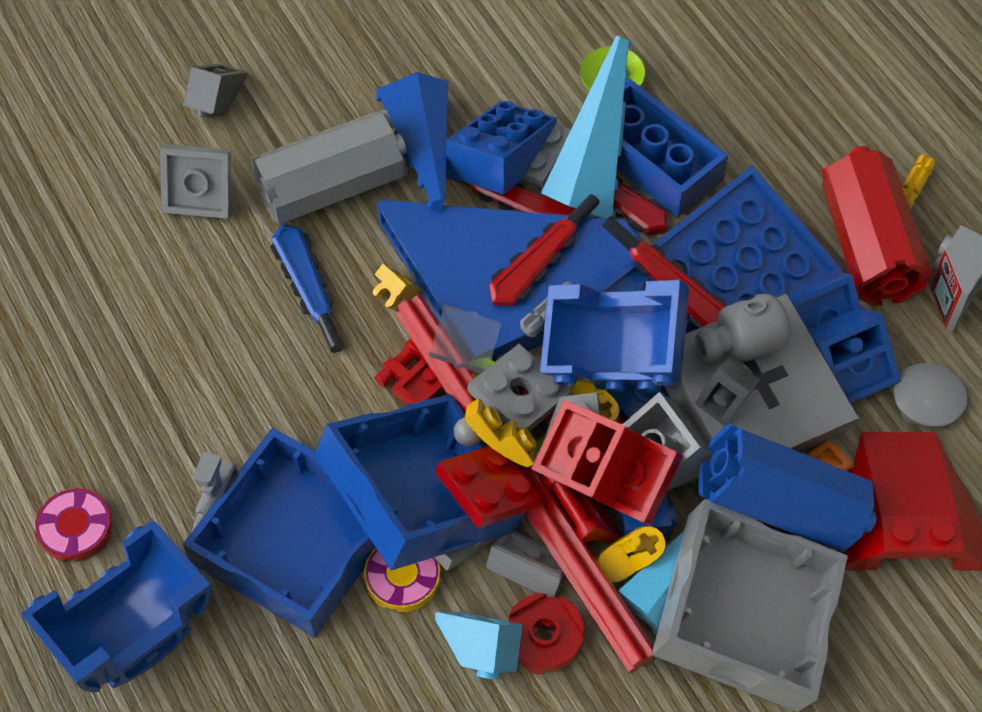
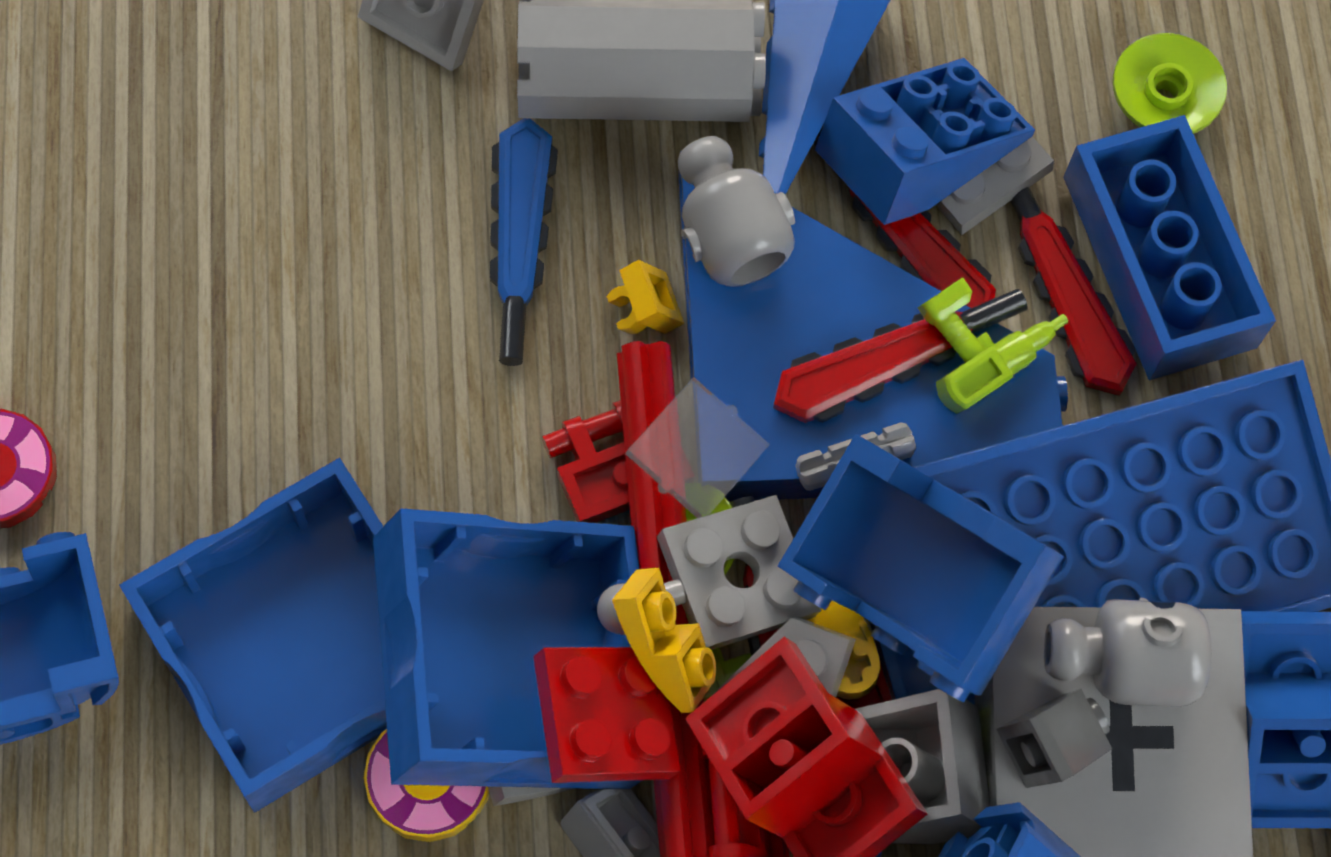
camera: 20 degrees right, 10 degrees up
(215, 478) = (216, 502): light grey piece -> none
(424, 217) = (733, 216): none -> light grey piece
(592, 235) = (986, 363): none -> lime piece
(595, 141) = (1056, 216): medium azure wedge -> none
(651, 261) = (1068, 492): red sword -> none

